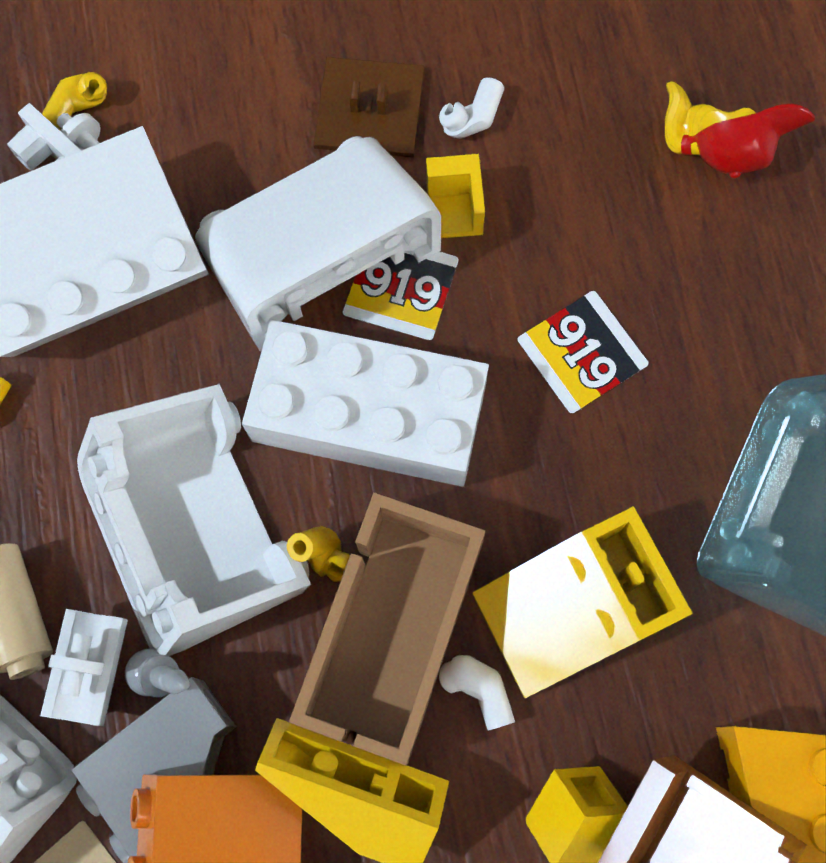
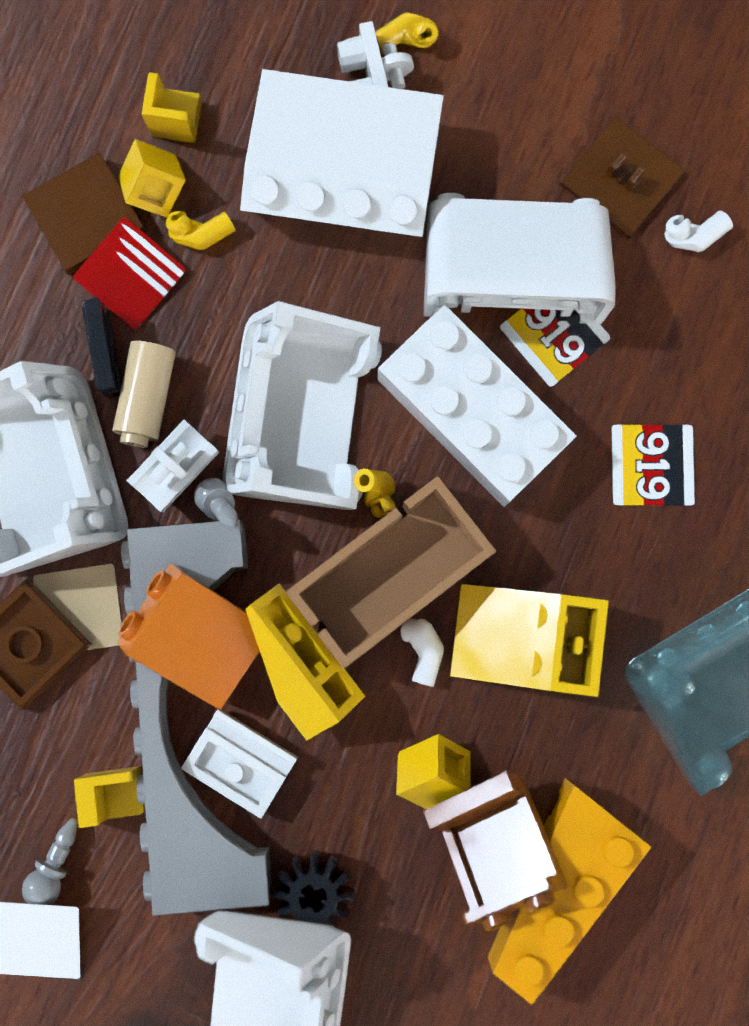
camera: 30 degrees right, 10 degrees up
(457, 192) = (640, 290): yellow panel -> none

